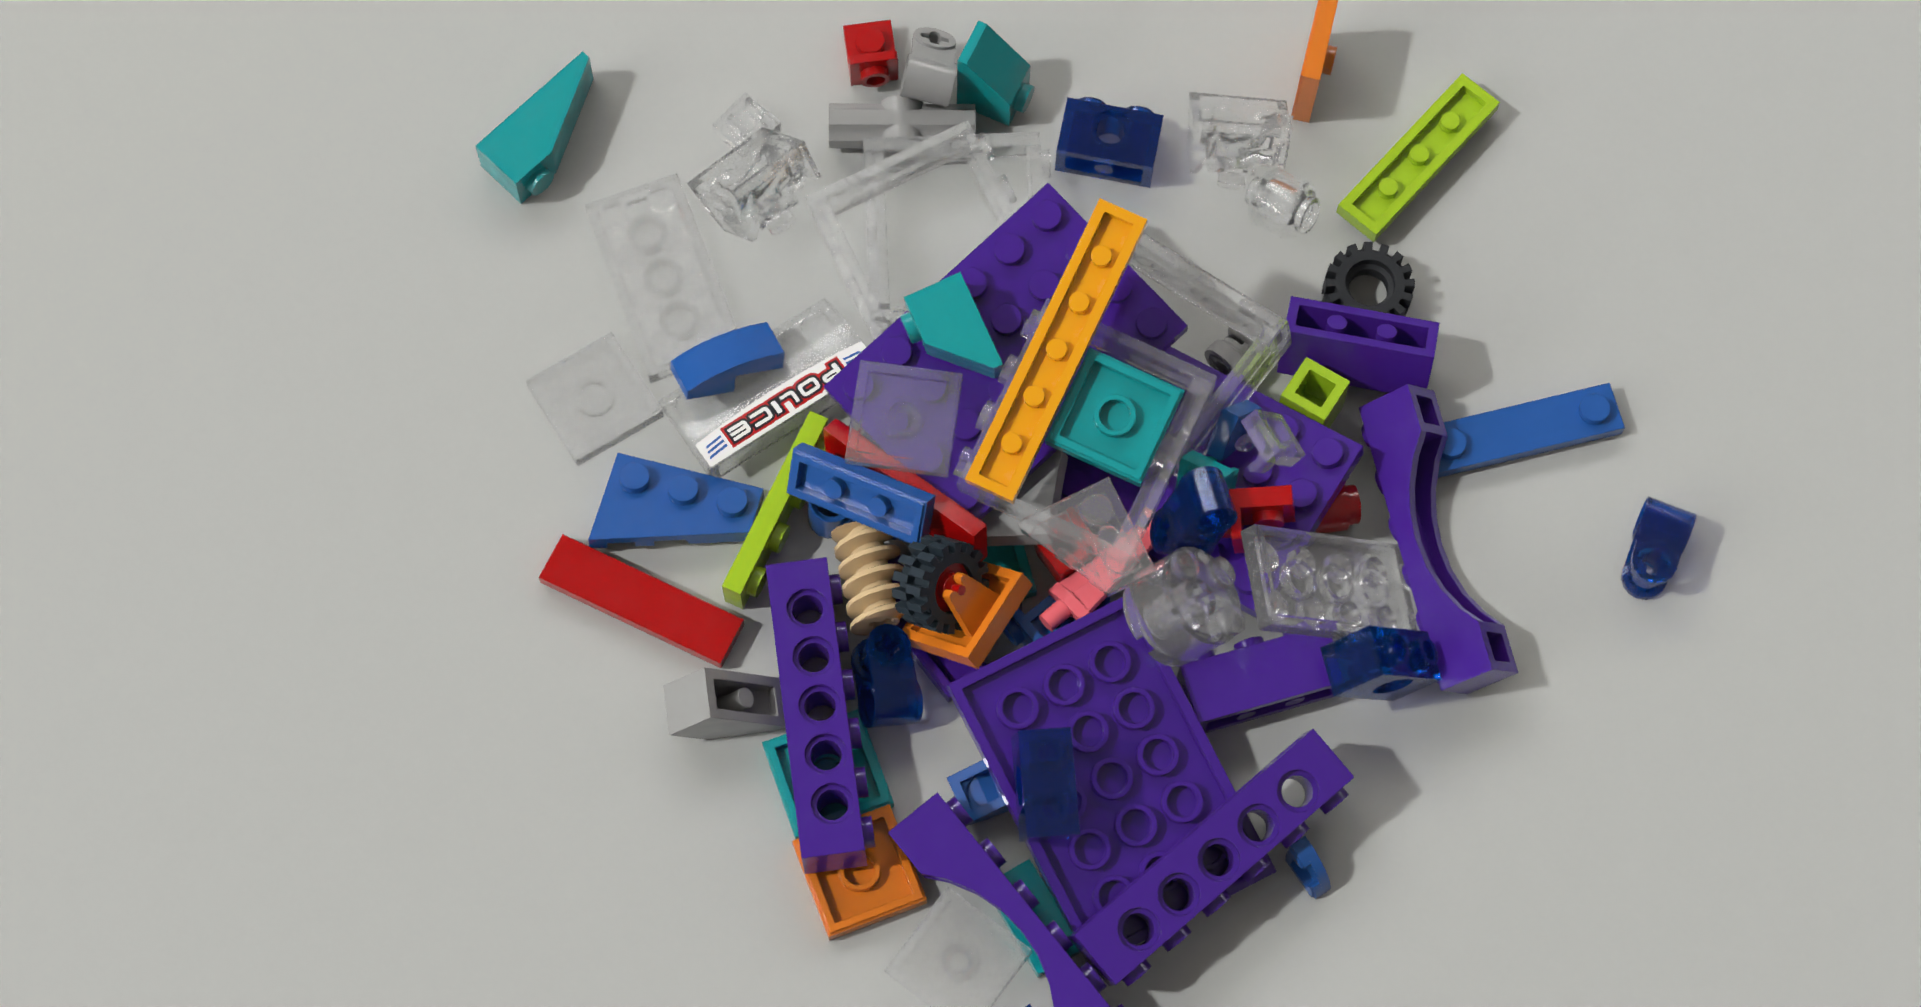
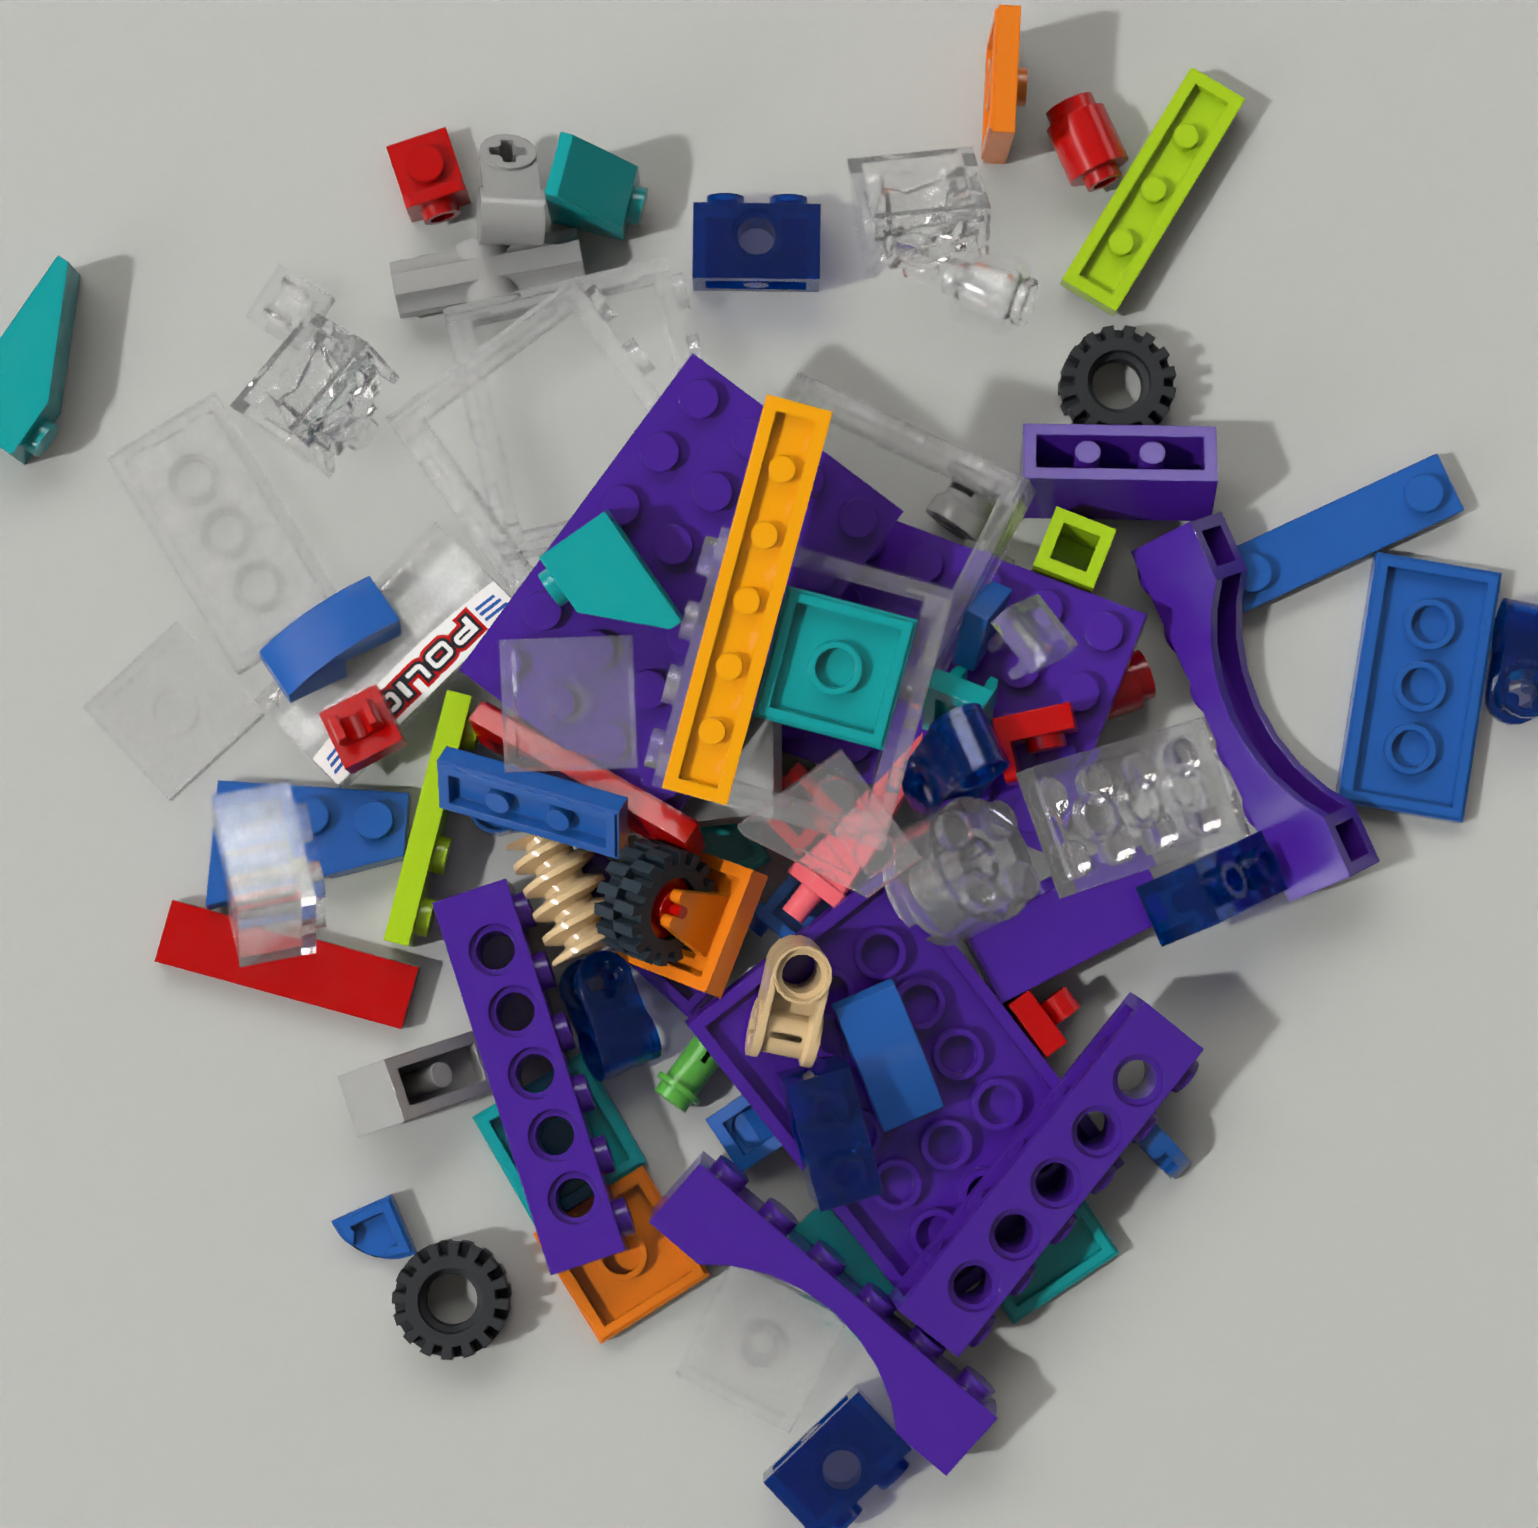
camera: 15 degrees left, 15 degrees up
(643, 518) = (269, 882): none -> clear brick
(667, 817) = (377, 1230): none -> blue tile
(712, 847) = (412, 1303): none -> black tyre
(739, 427) = (363, 729): none -> red tile
(939, 741) = (687, 1076): none -> bright green pin
(1031, 680) = (789, 1015): none -> tan piece
(1102, 737) = (887, 1055): none -> blue slope
(1210, 943) = (1063, 1264): none -> teal tile
(1233, 745) = (1040, 1019): none -> red tile
(1373, 112) = (1086, 142): none -> red brick
(1569, 556) = (1418, 687): none -> blue tile

